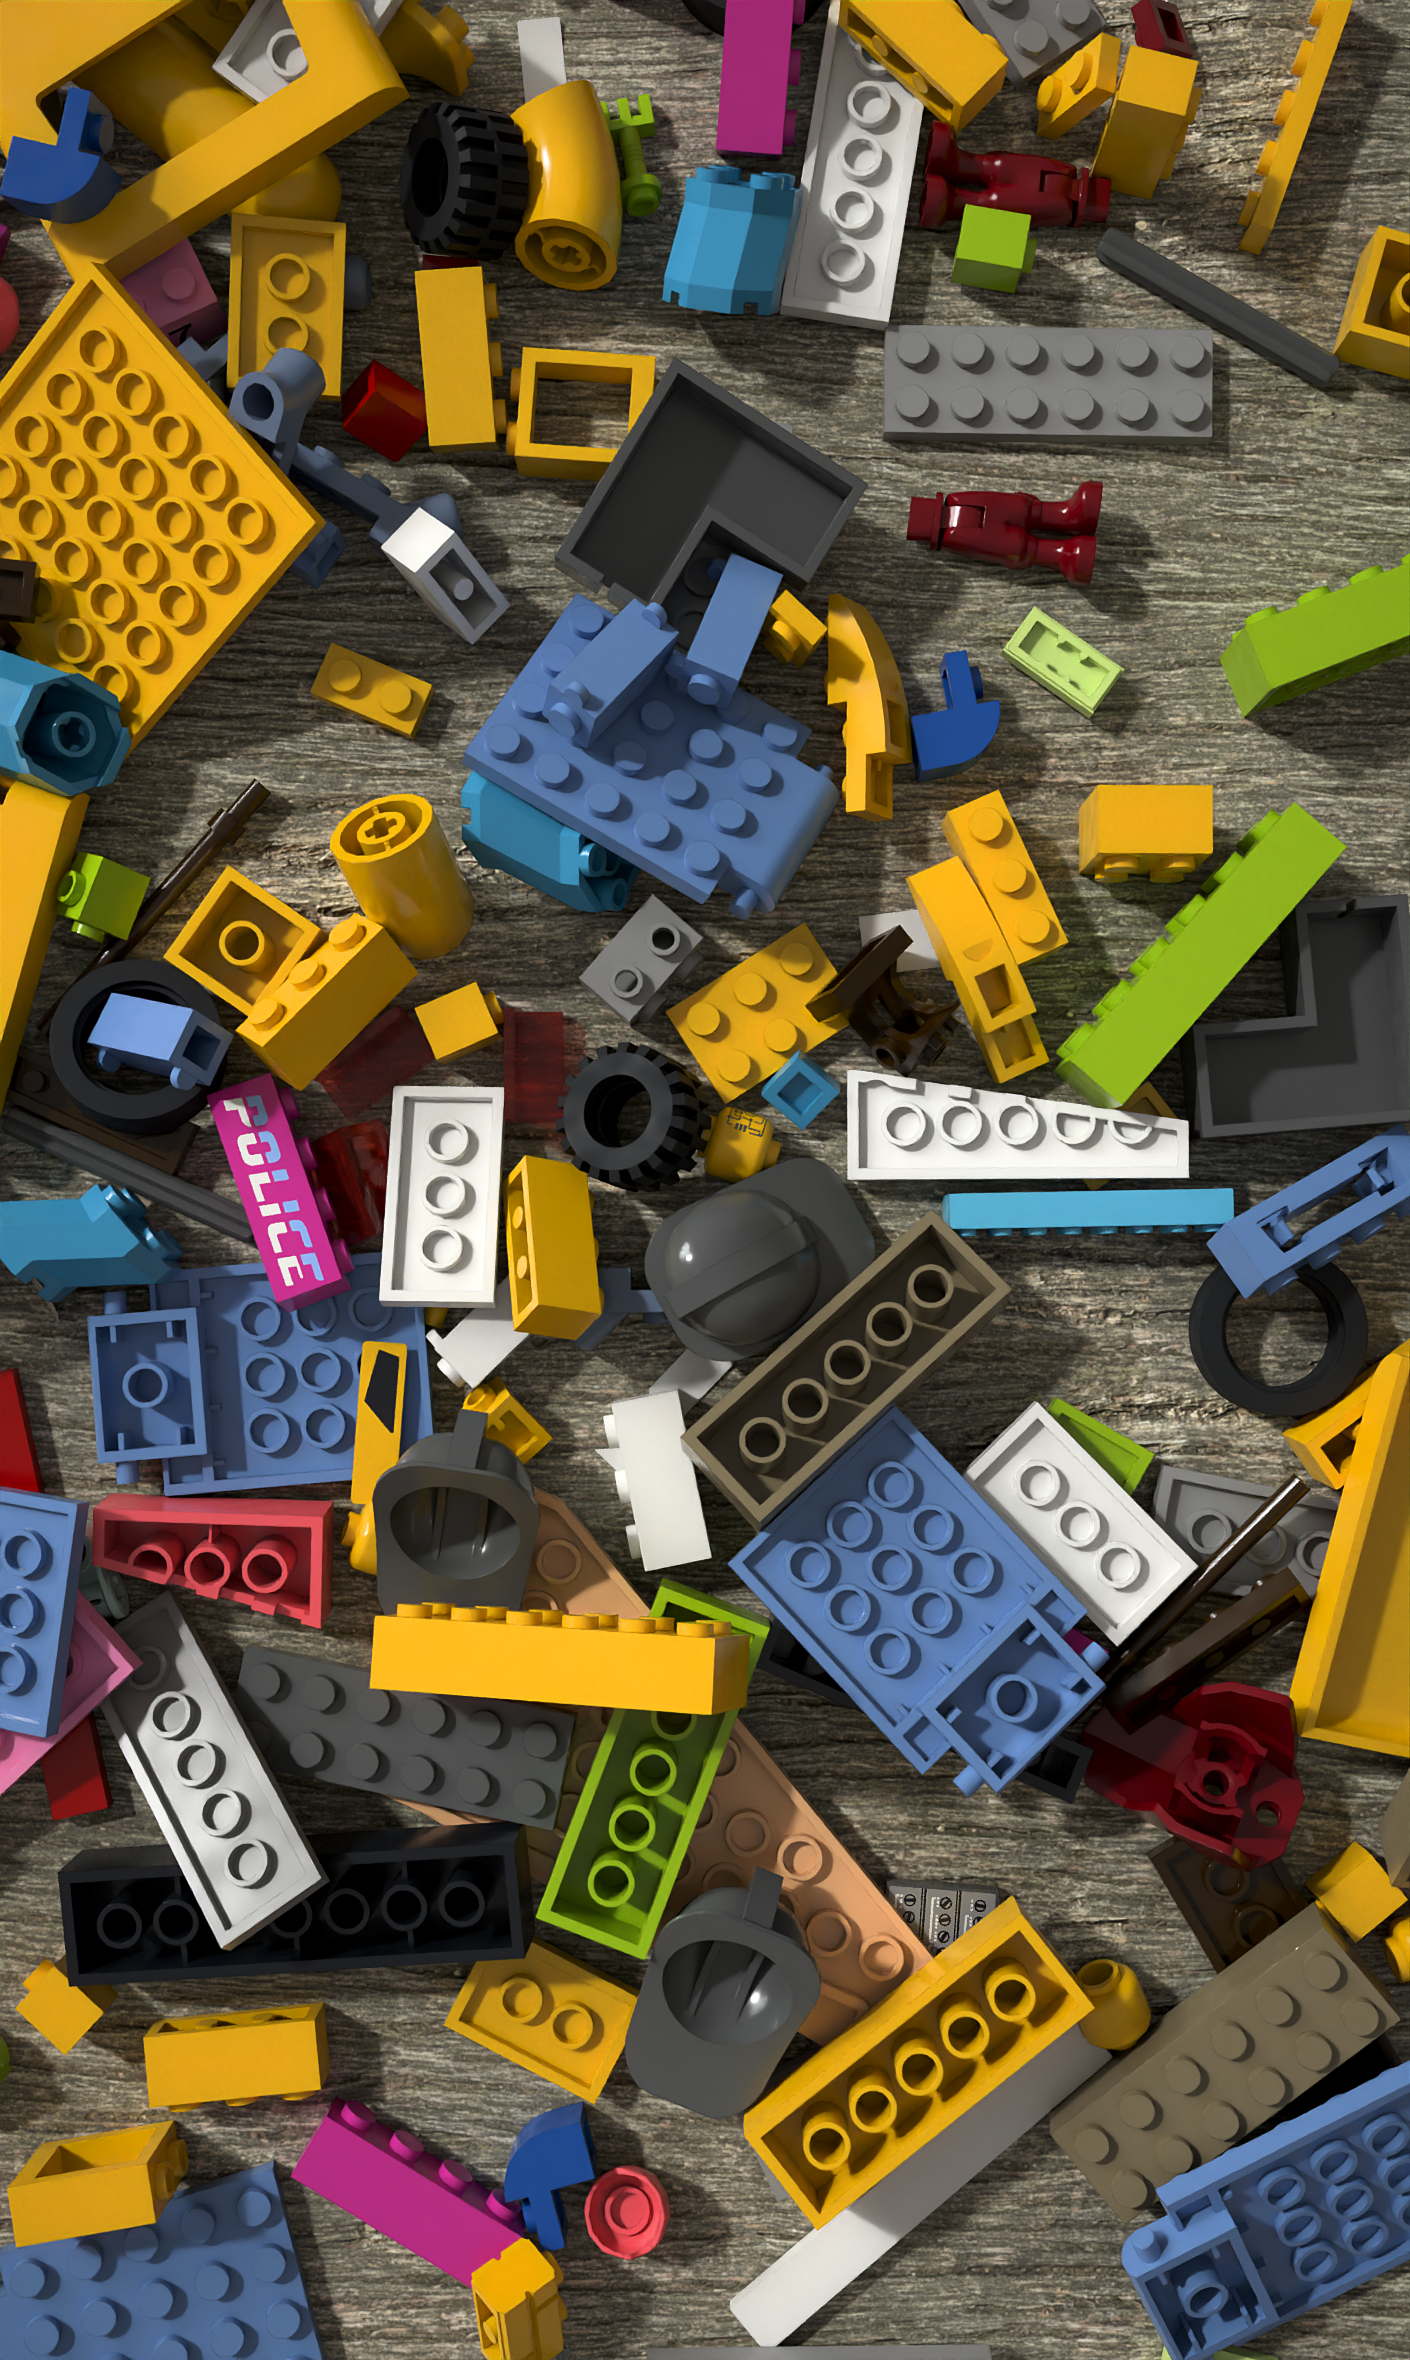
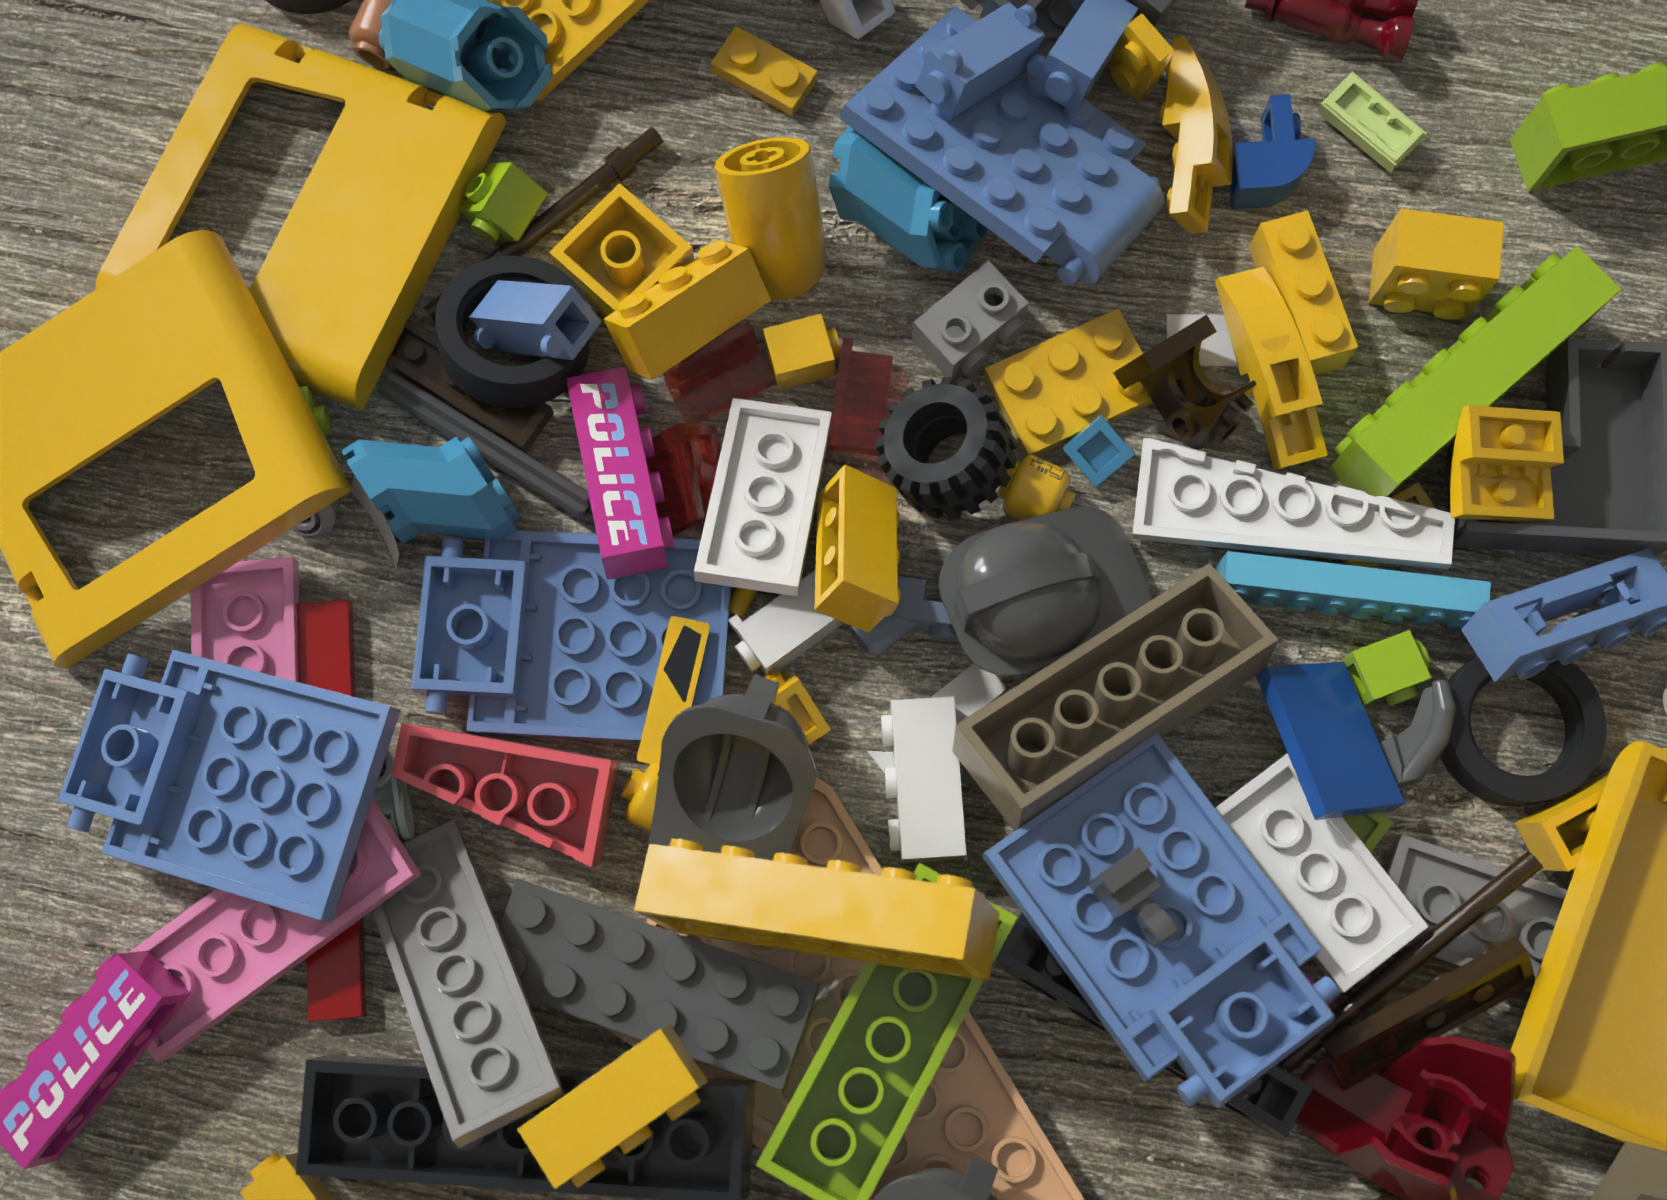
camera: 10 degrees right, 10 degrees down
(382, 1887) = (614, 1108): none -> yellow brick
(881, 1586) = (1128, 887): none -> dark grey piece
(1078, 1380) = (1329, 740): none -> blue tile
(1135, 1291) = (1389, 669): none -> lime brick
(1174, 1371) = (1421, 744): none -> dark grey piece
(1236, 1061) = (1505, 464): none -> yellow slope

